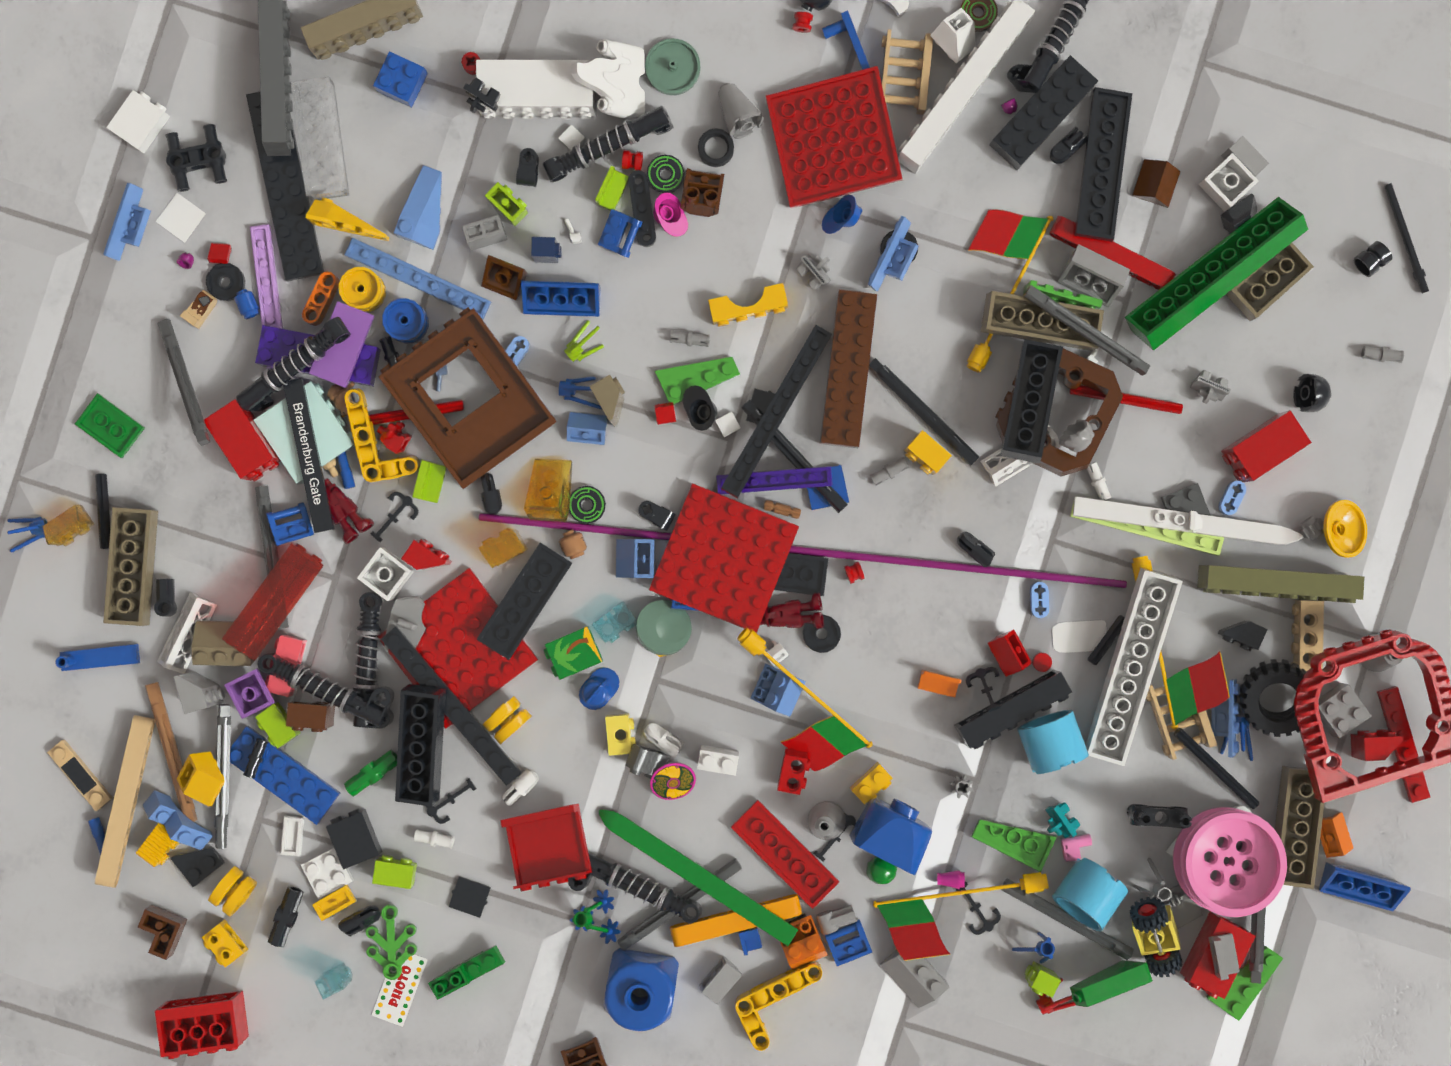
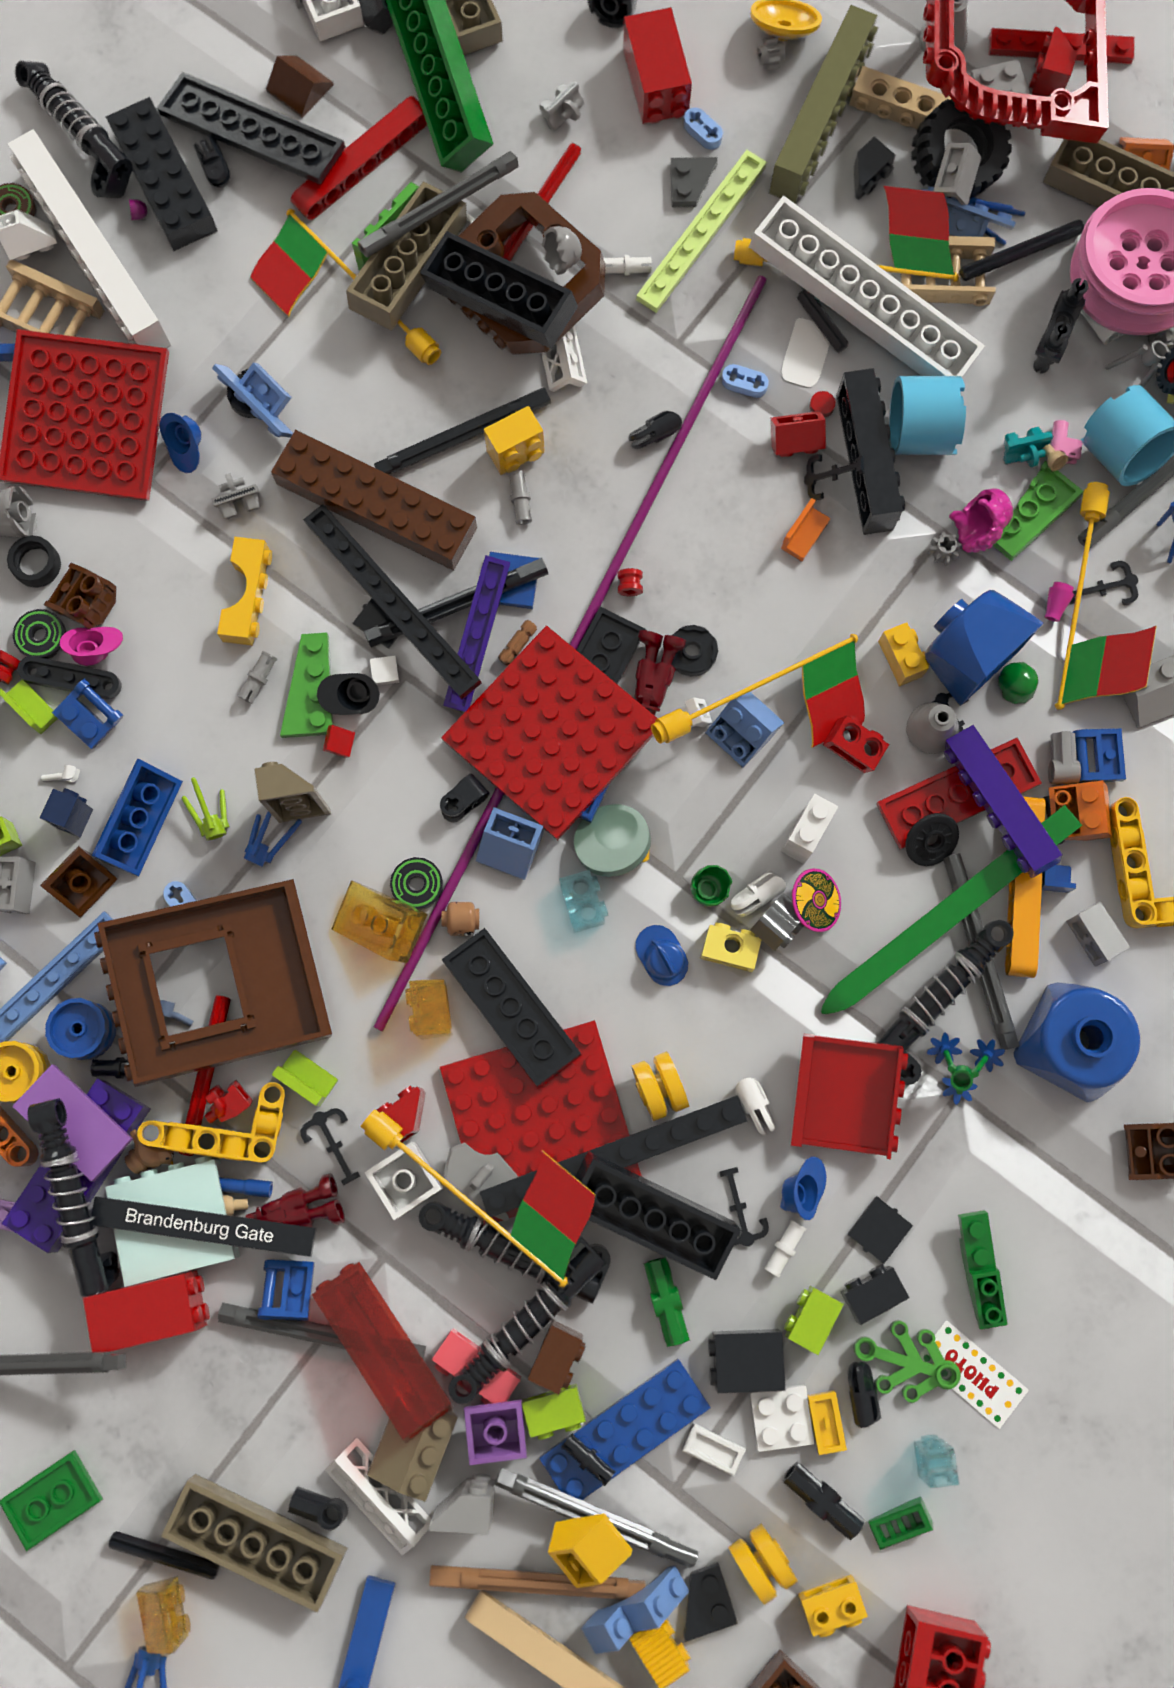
camera: 70 degrees left, 10 degrees down
(295, 966) = (905, 1533): none -> green slope
(392, 679) = (547, 1218): none -> flag
(425, 906) = (874, 1293): none -> black brick
(474, 838) = (804, 1190): none -> blue piece
(491, 499) = (354, 1002): black arm -> none
(573, 653) = (603, 969): green panel -> none
(586, 428) = (319, 847): medium blue panel -> none
(656, 705) = (710, 885): none -> green hair
(740, 836) = (922, 830): none -> black wheel
(784, 886) = (1002, 801): none -> dark purple brick
(991, 807) = (983, 520): none -> dark pink hair
(1058, 844) = (1056, 459): none -> tan piece
(1094, 275) = (376, 181): light grey slope -> none
(1183, 521) = (710, 187): white piece -> none
(1250, 702) = (958, 171): none -> light grey panel

